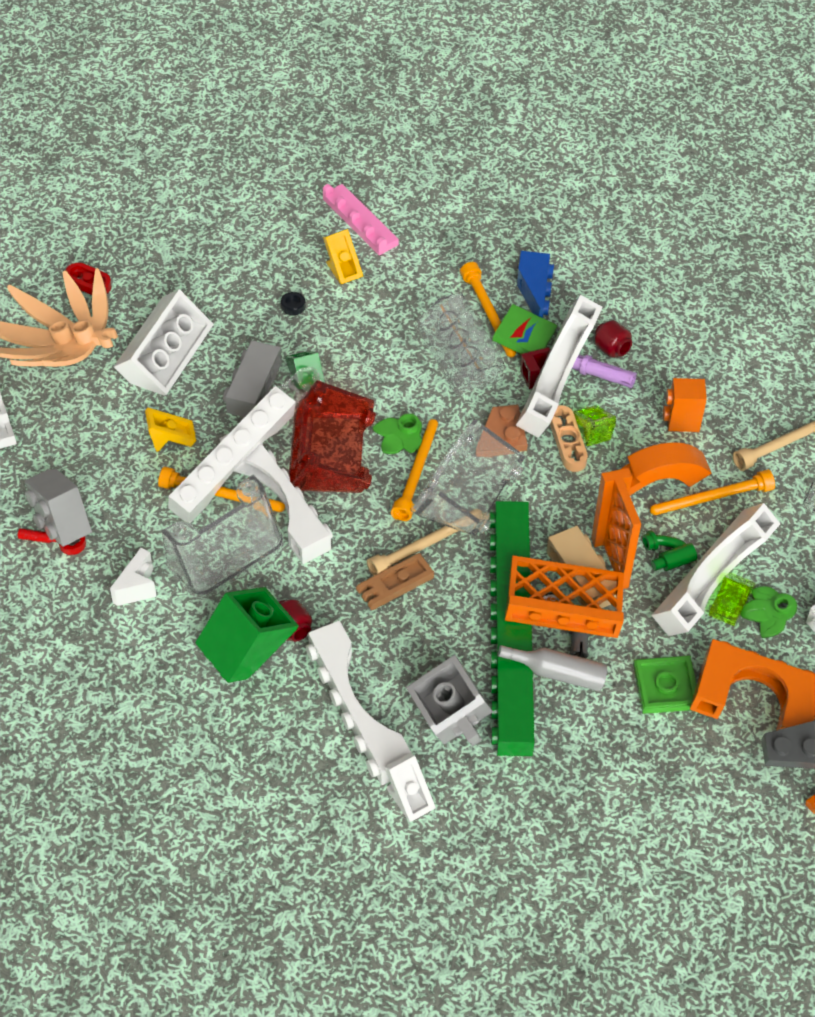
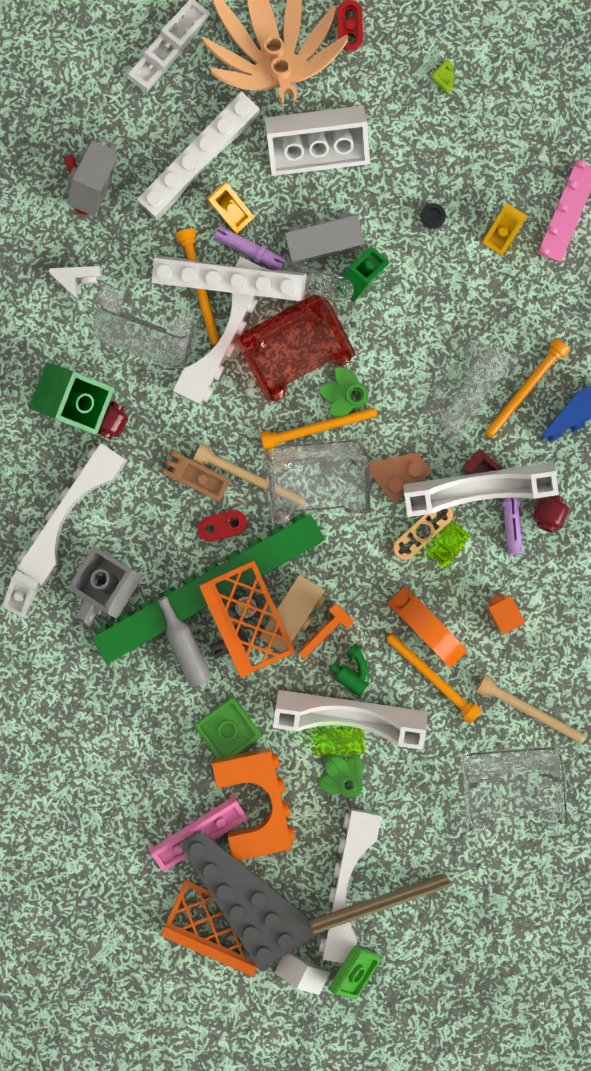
camera: 65 degrees right, 35 degrees up
(106, 431) = (185, 168): none -> white arch
(184, 244) = (444, 76): none -> lime tile
(208, 441) = (258, 253): none -> lavender pin
(458, 584) = (222, 525): none -> red plate
(524, 331) = (514, 434): bright green tile -> none
(764, 780) = (214, 824): none -> bright pink hinge

